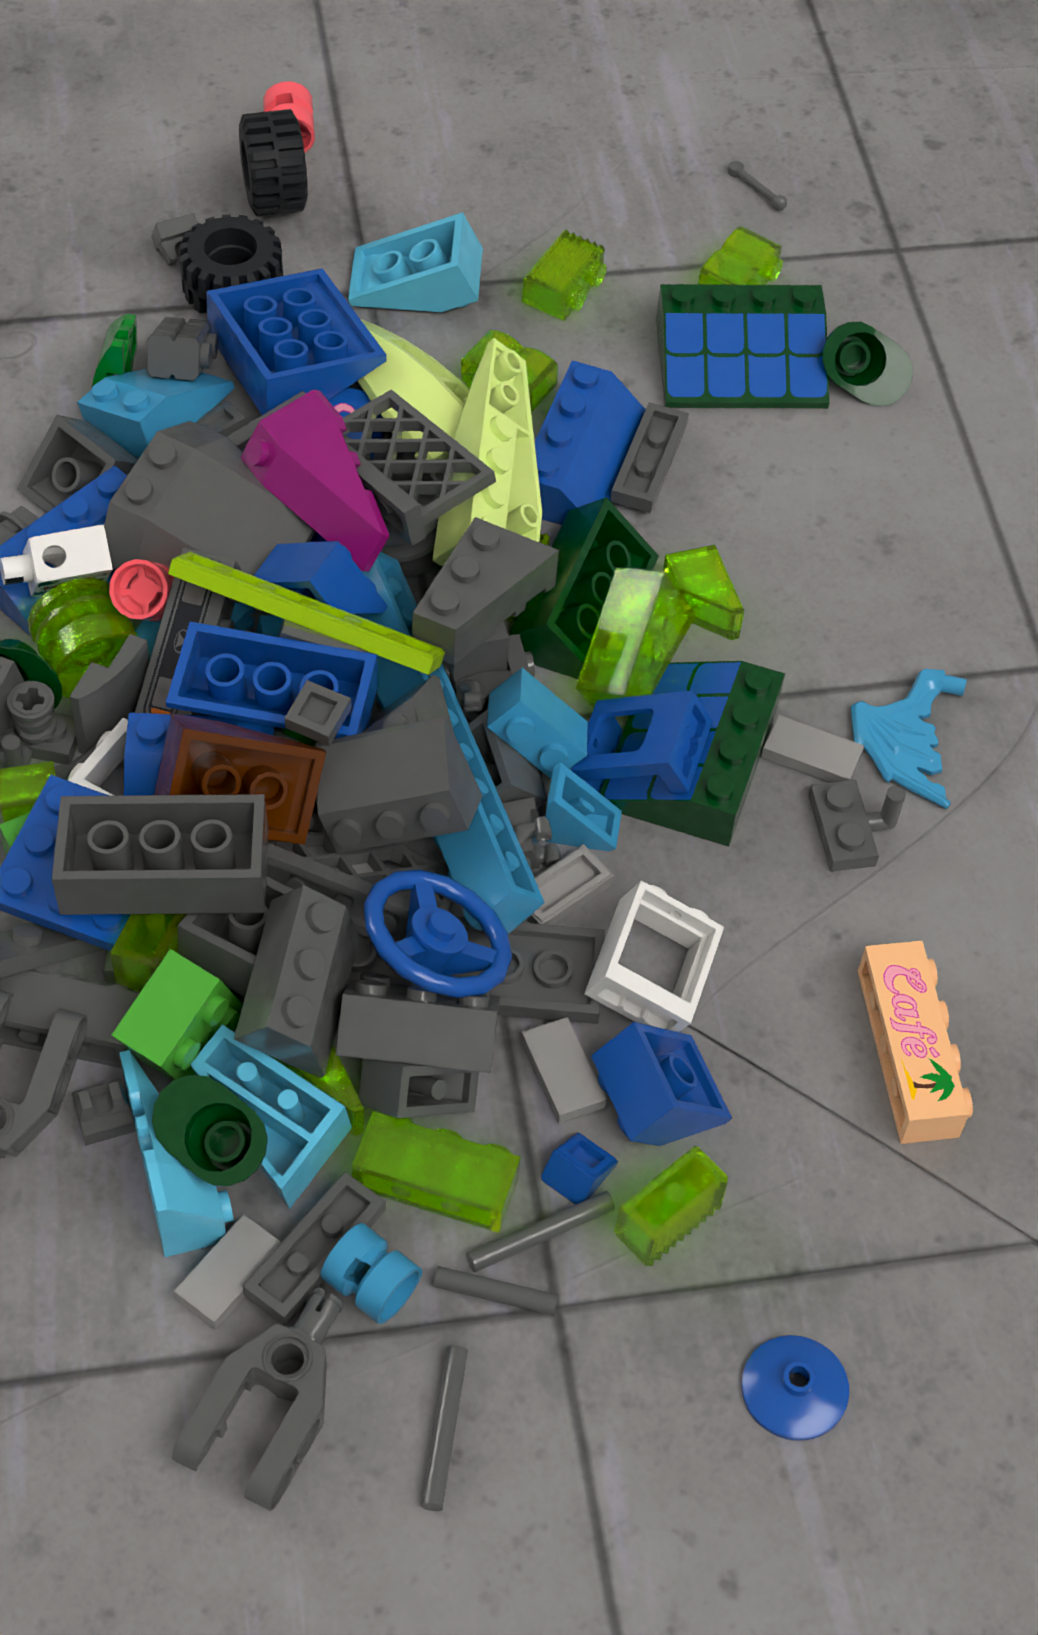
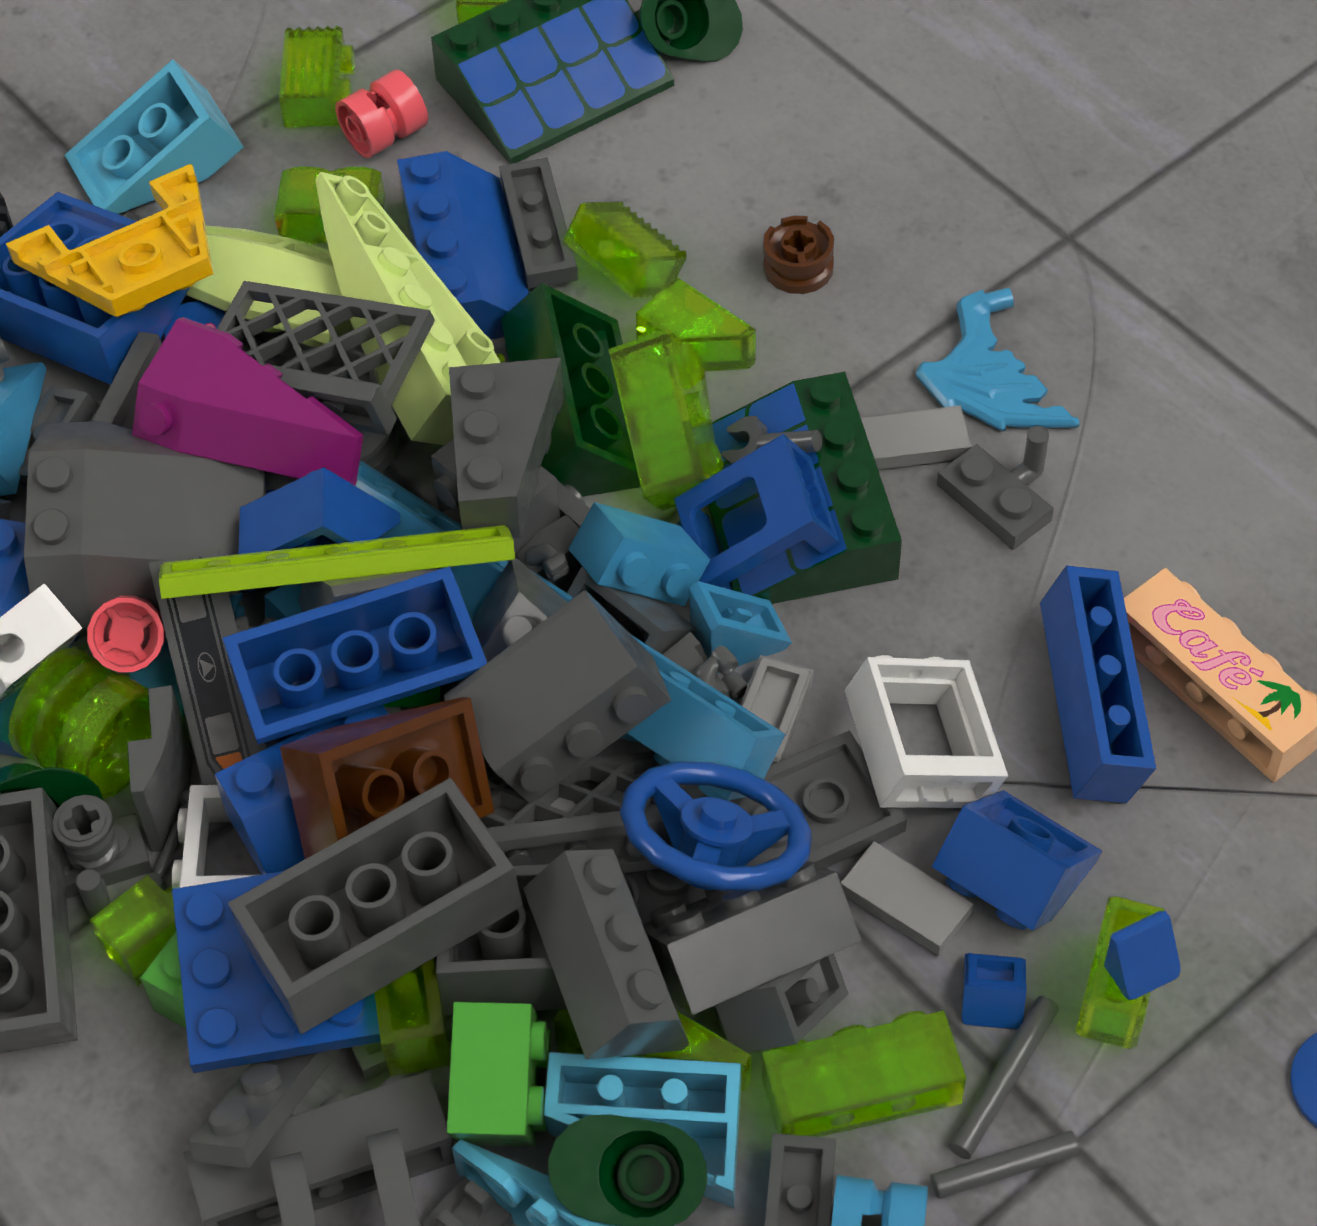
camera: 25 degrees left, 0 degrees up
(318, 713) = (437, 660): dark grey plate -> none
(329, 339) = (132, 263): none -> yellow wing
(591, 323) = (385, 111): none -> coral wheel
(681, 1197) = (1143, 956): none -> blue slope
(687, 680) = (754, 431): none -> dark grey bar
(695, 504) = (624, 248): none -> clear neon green brick
(808, 996) = (1097, 685): none -> blue brick
(825, 576) = (798, 255): none -> reddish brown wheel

